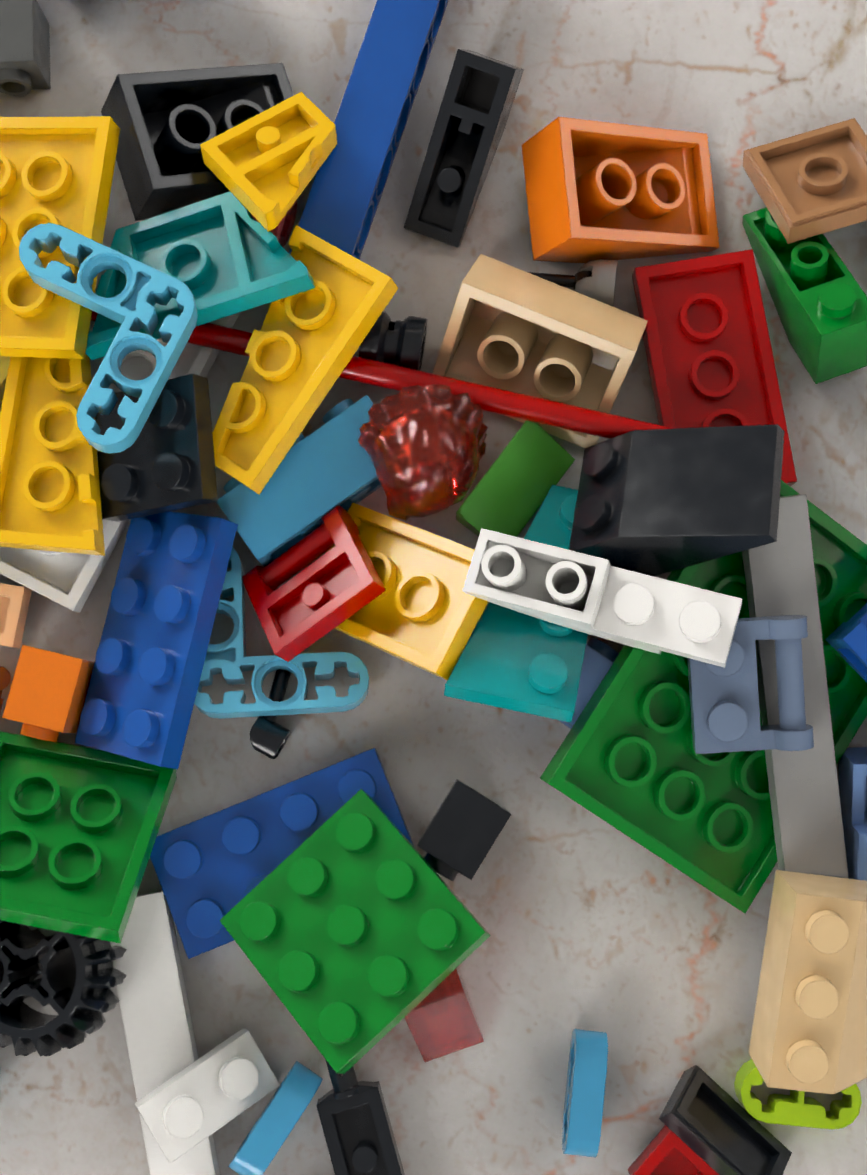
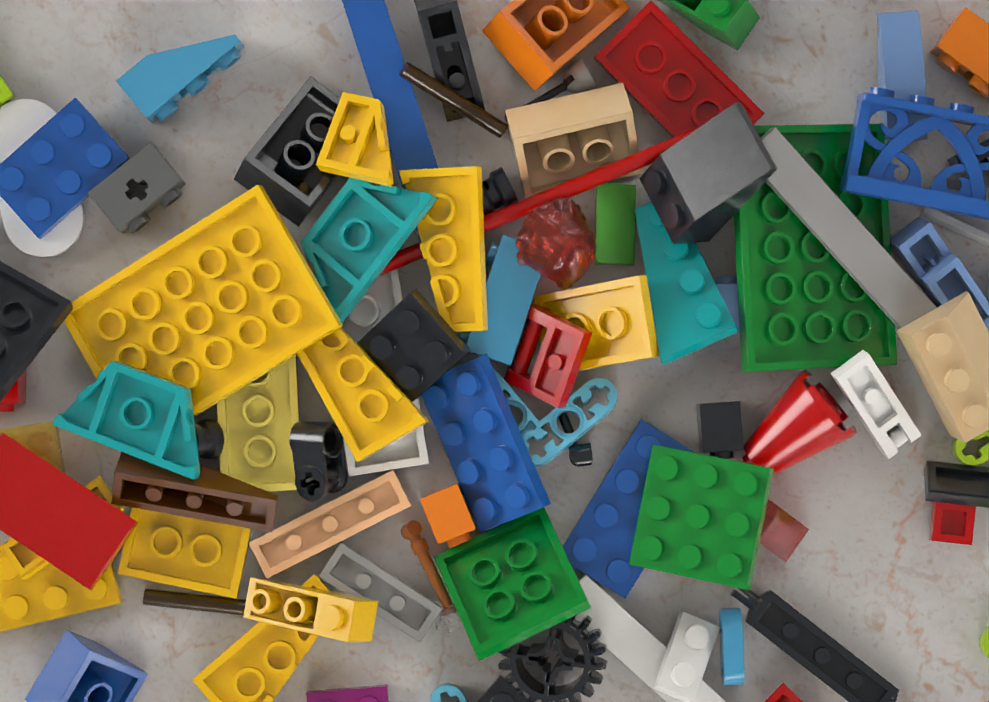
camera: 40 degrees left, 5 degrees up
(130, 308) = (354, 282): medium azure beam -> none
(426, 196) = (453, 99): none -> dark brown bar
(560, 902) = (797, 427): none -> red cone
(585, 1093) = (879, 516): dark azure beam -> none
(602, 599) = (709, 258): white slope -> none
(683, 944) = (875, 403): none -> white plate
(727, 698) = (803, 254): sand blue plate -> none

